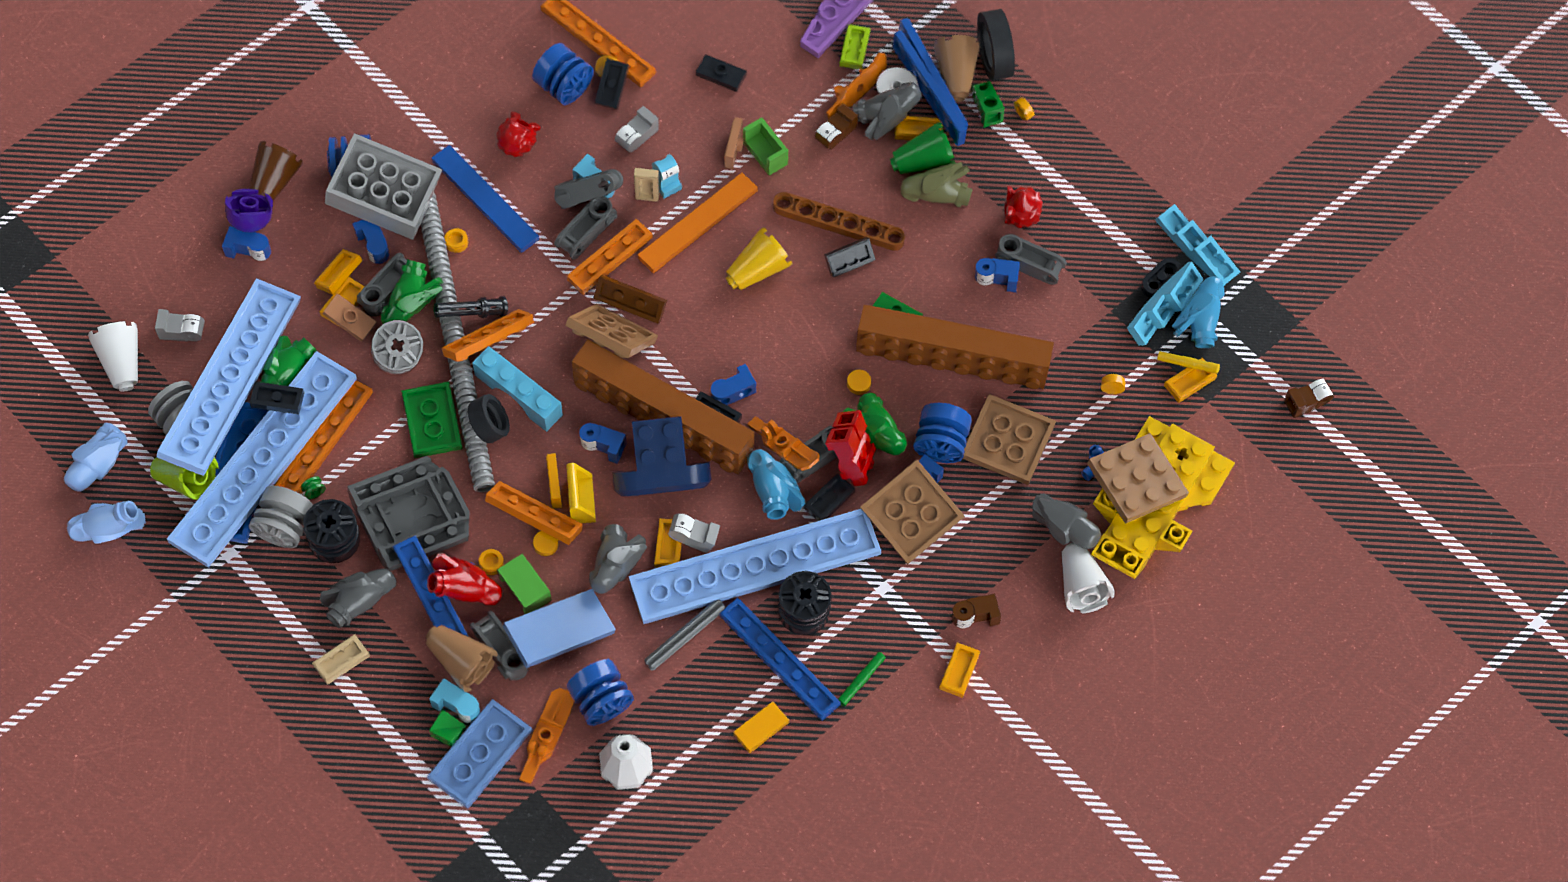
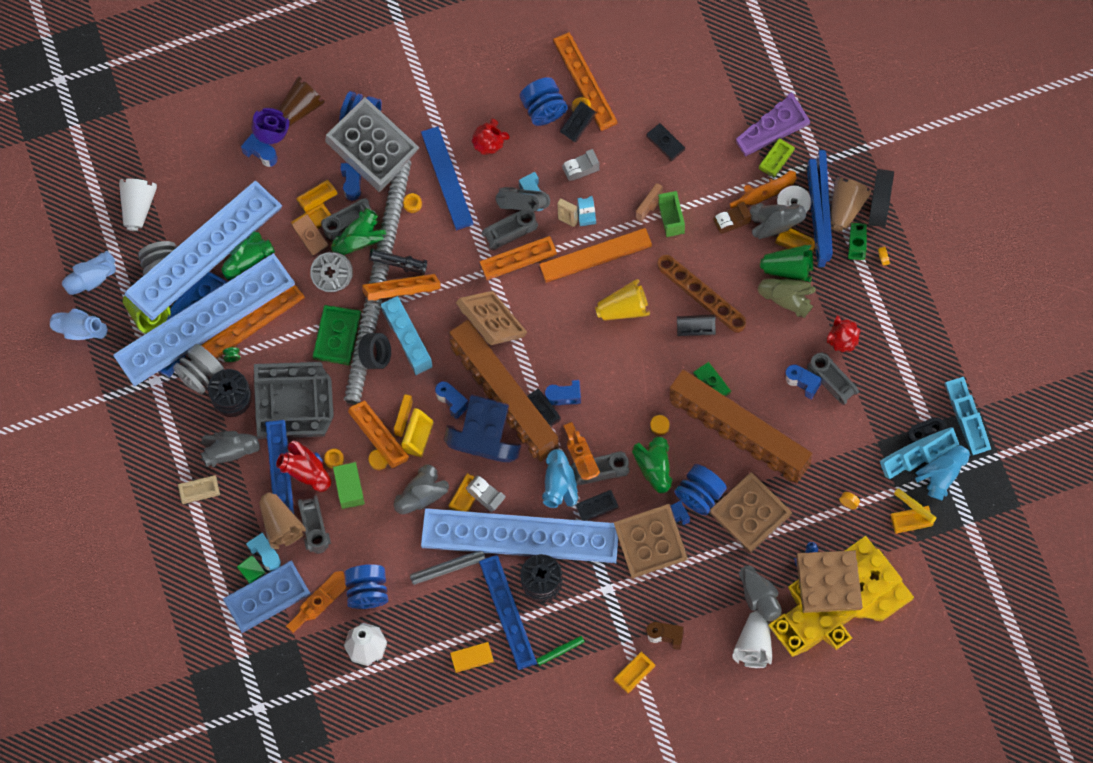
camera: 30 degrees right, 5 degrees up
(179, 326) = (187, 196): light grey leg -> none
(277, 397) = (230, 279): black plate -> none
(559, 628) = (358, 527): medium blue tile -> none
(630, 299) = (518, 297): reddish brown plate -> none
(852, 446) = (626, 475): red hips -> none
(1308, 397) = (995, 568): reddish brown leg -> none

